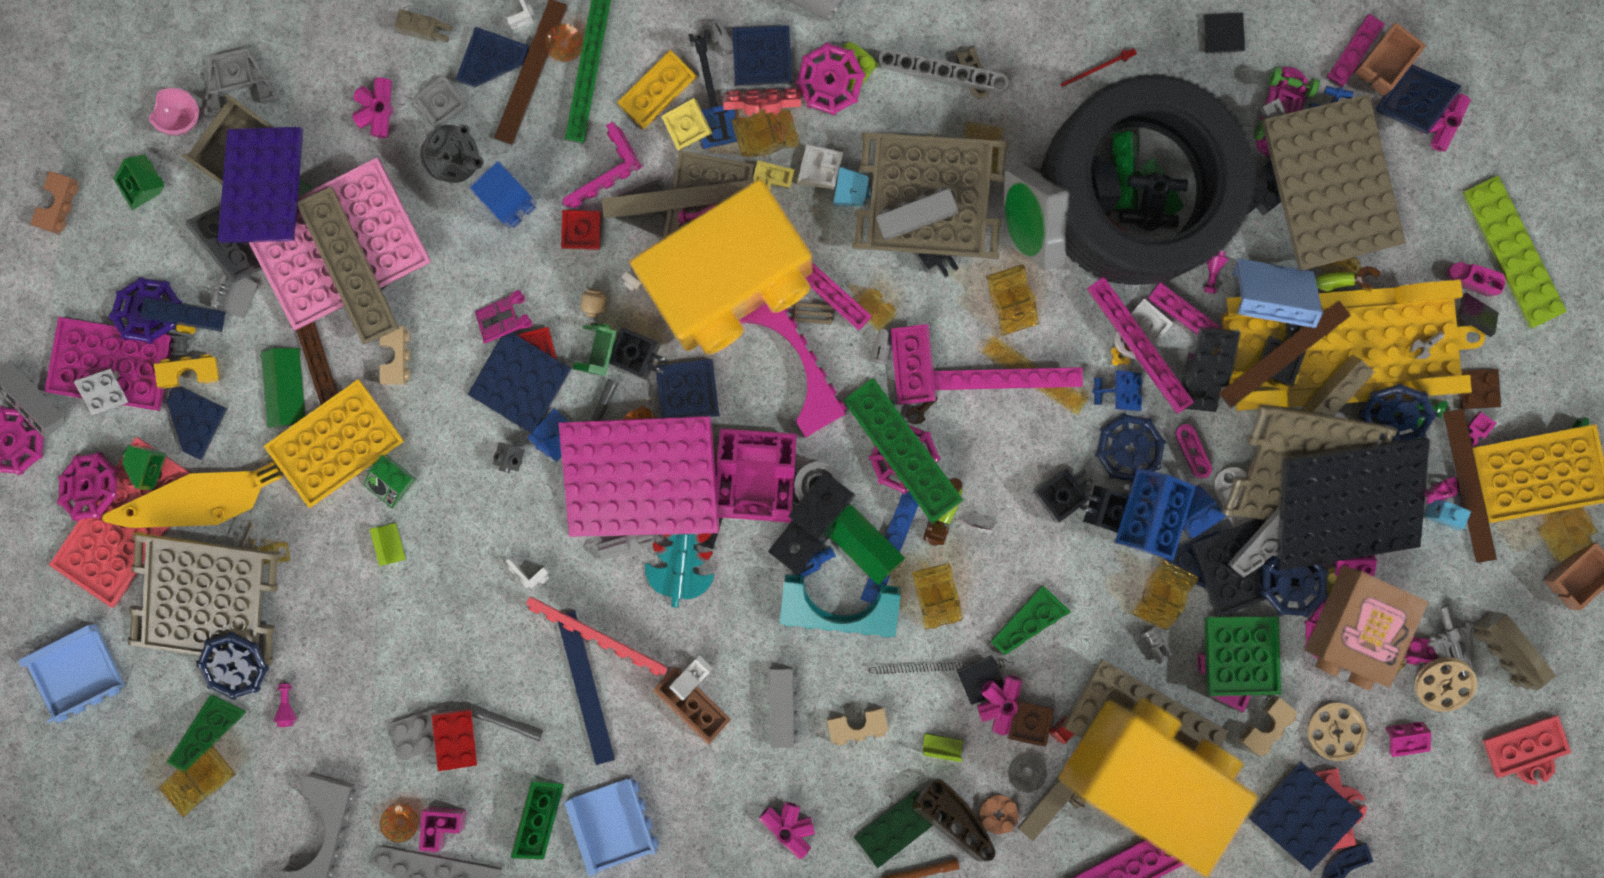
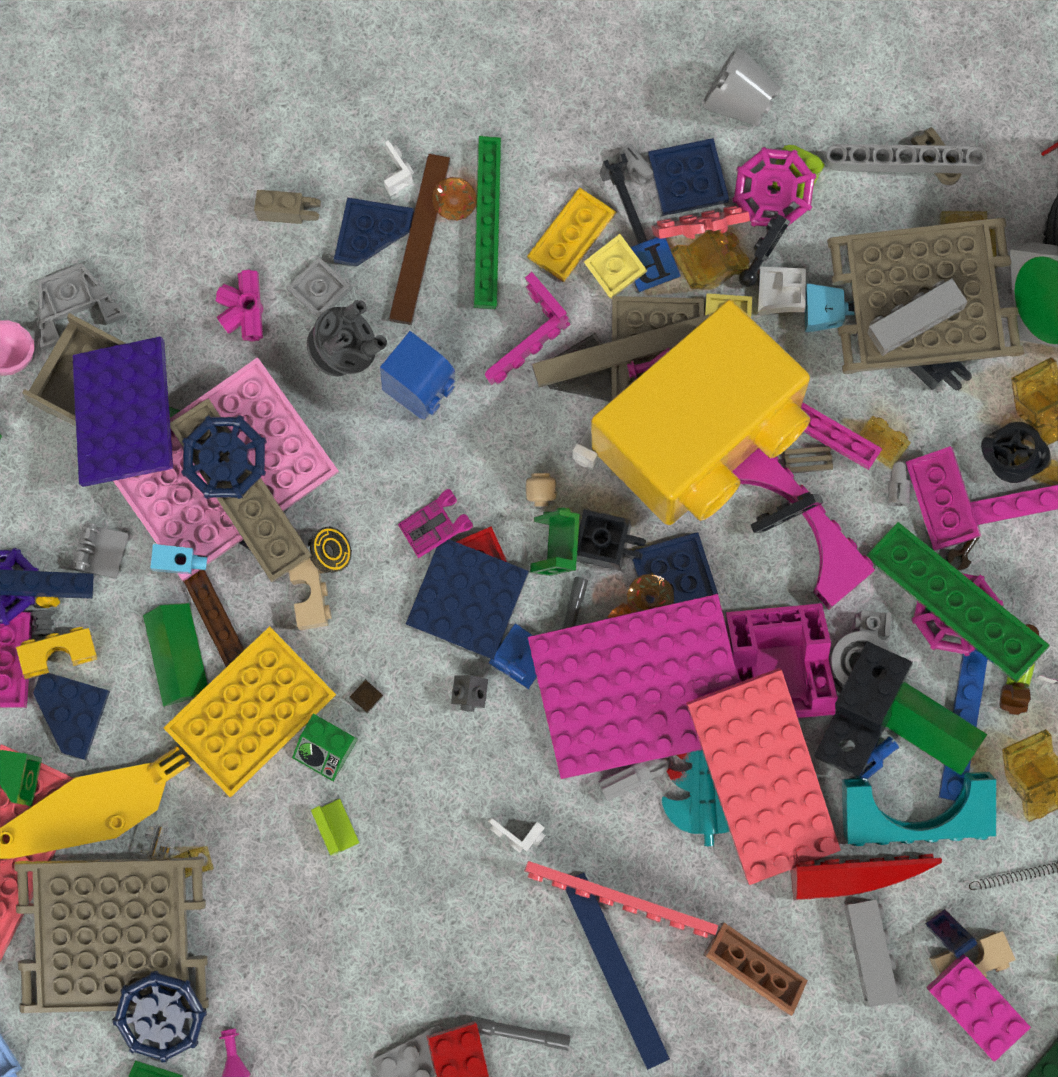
camera: 10 degrees left, 10 degrees down
(234, 259) = (96, 504): dark grey plate -> none
(281, 314) = (165, 558): none -> medium azure torso
(326, 235) = (210, 457): none -> dark blue plate
(425, 322) = (338, 542): none -> clear smoke tile
(428, 446) = (366, 696): none -> dark brown plate
(581, 230) = (511, 407): red plate -> none
(662, 396) = (649, 585): none -> clear orange dish
(691, 677) = (749, 931): white bracket -> none
(722, 561) = (763, 775): none -> coral plate
(781, 649) = (854, 877): none -> red wedge
(783, 355) = (786, 512): none -> black plate
(811, 130) = (763, 249): none -> black plate
(843, 458) = (883, 622): none -> light grey brick
(844, 704) = (951, 933): none -> dark blue plate
(853, 761) = (978, 1007): none -> dark pink plate
(978, 326) = (1021, 459): none -> black piece

